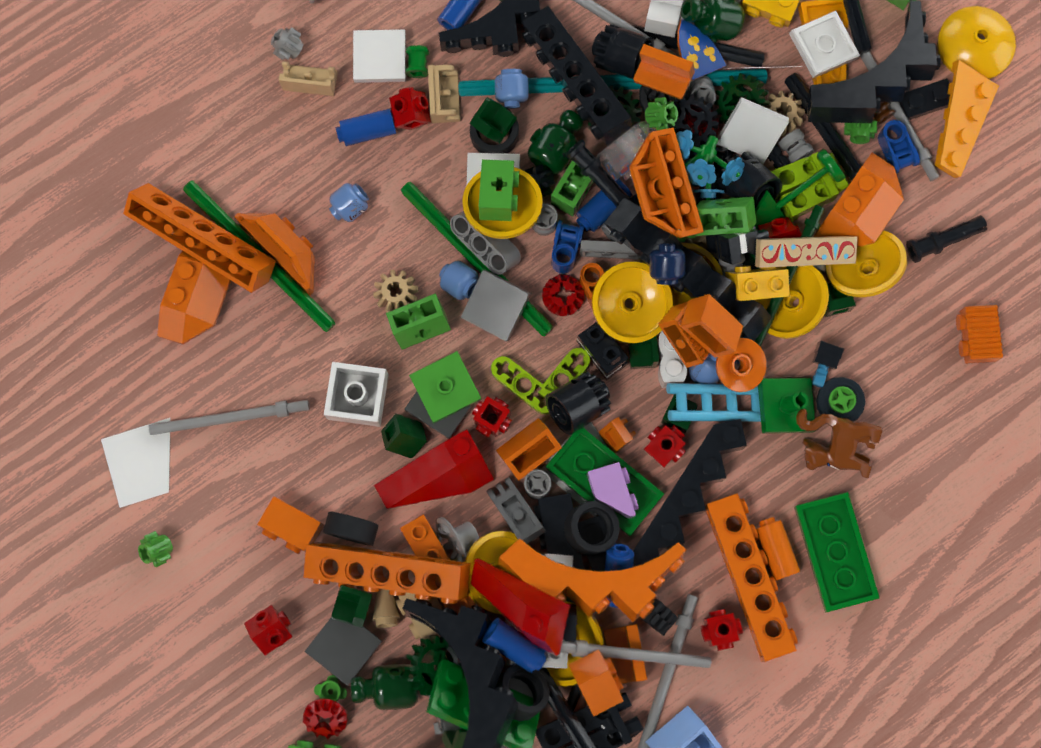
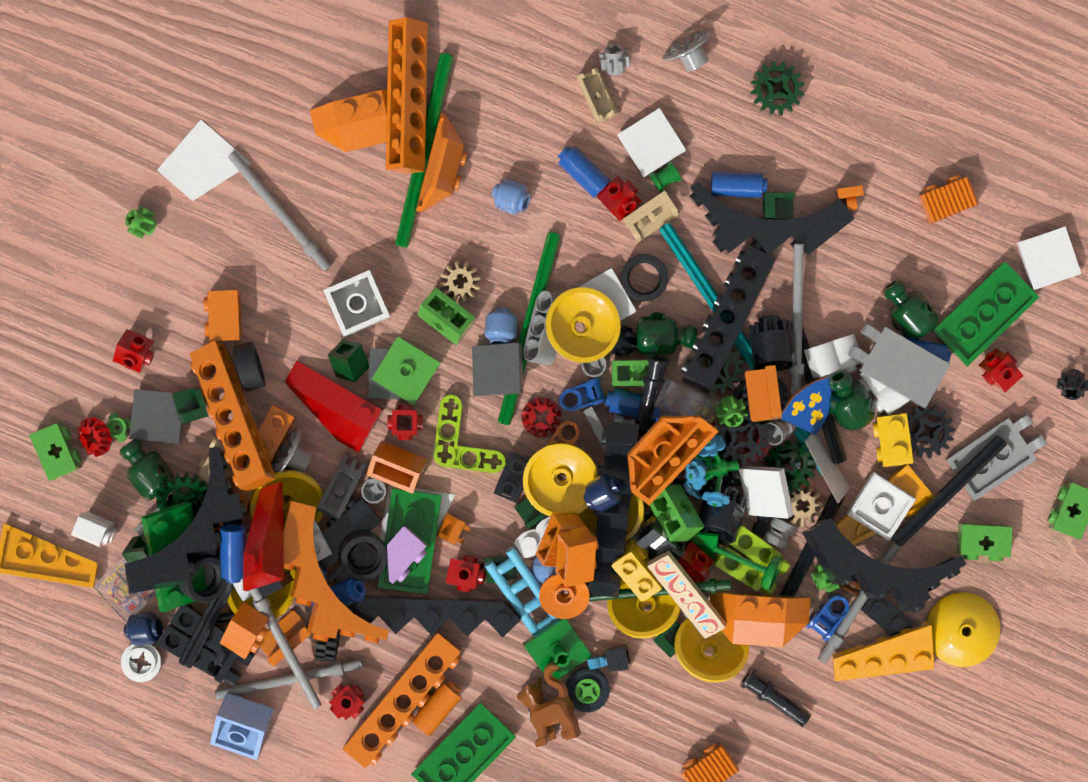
camera: 50 degrees right, 10 degrees up
(385, 610) = (203, 432): tan cone -> none
(493, 120) = (647, 275): dark green panel -> none
(493, 203) = (572, 319): bright green brick -> none
(511, 88) = (685, 272): medium blue head -> none
(578, 402) = (457, 484): black gear -> none

